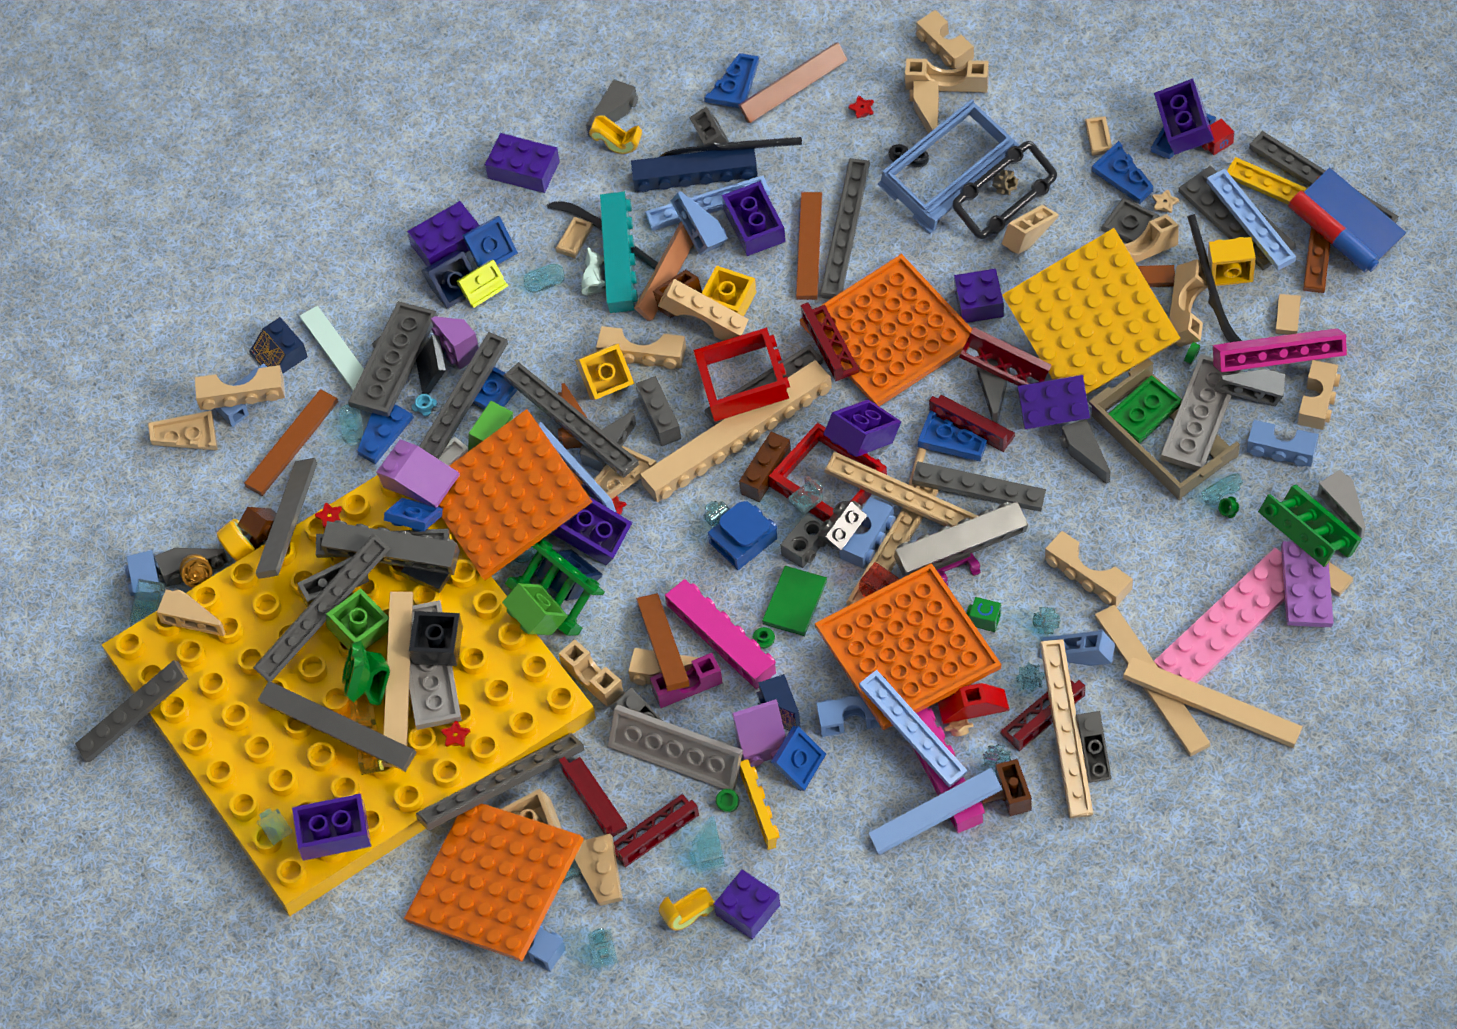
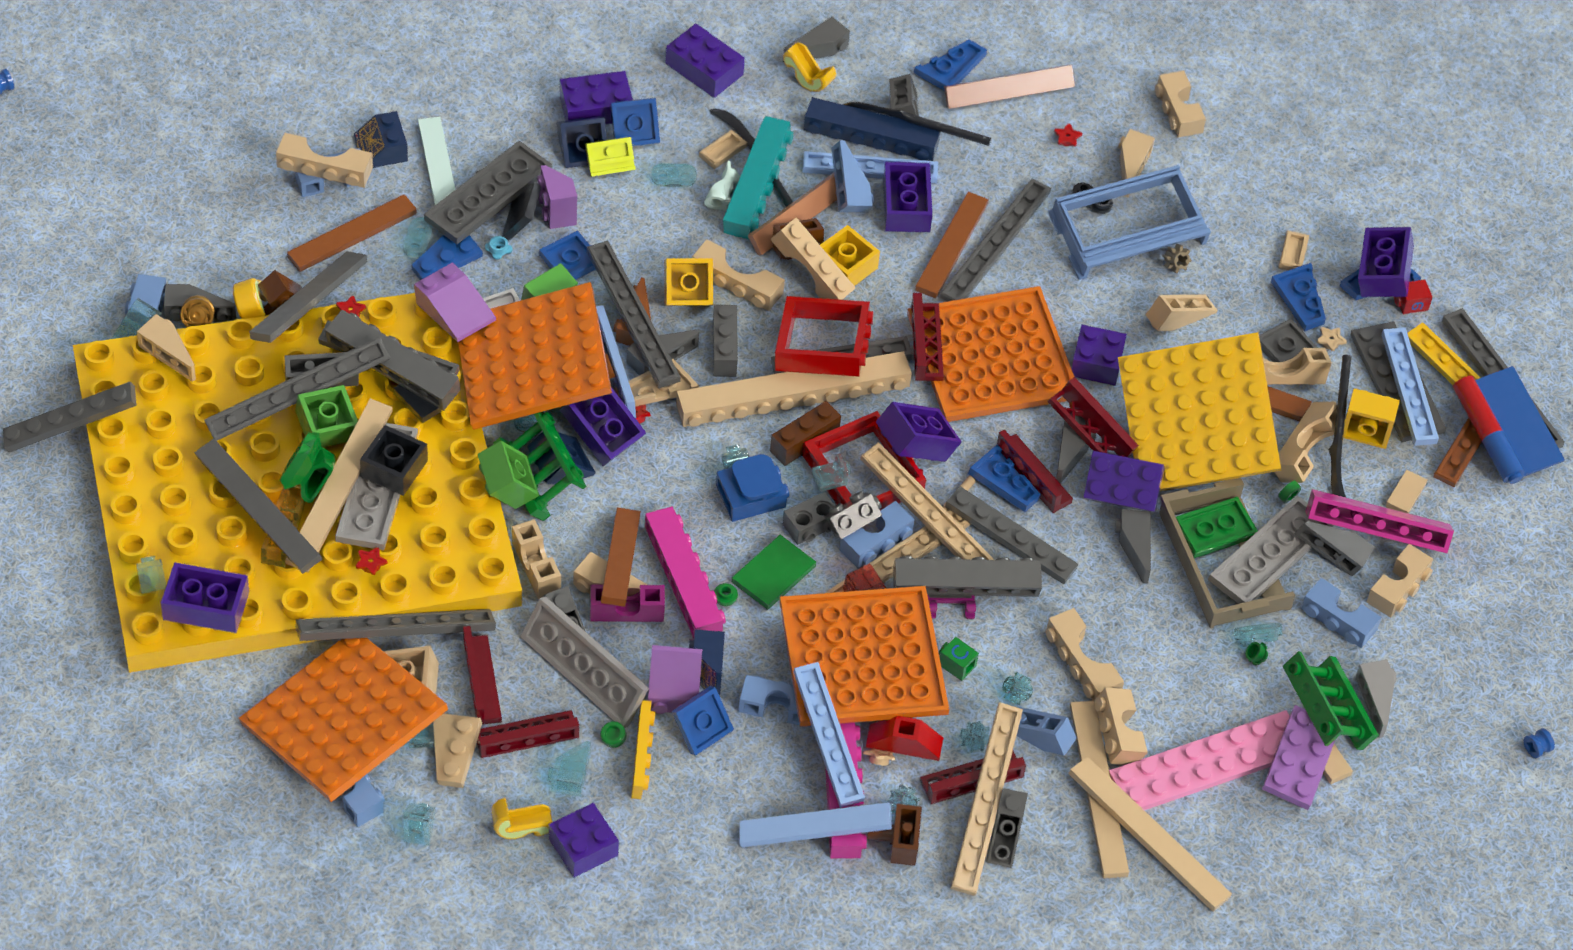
camera: 10 degrees right, 5 degrees down
(186, 431) = (254, 183): tan wing -> none
(412, 514) = (430, 338): blue plate -> none
(464, 394) = (539, 251): dark grey plate -> none
(968, 78) = (1188, 147): tan arch -> none
(970, 190) = (1150, 293): black bar -> none
(1154, 633) = (1114, 710): none -> tan arch

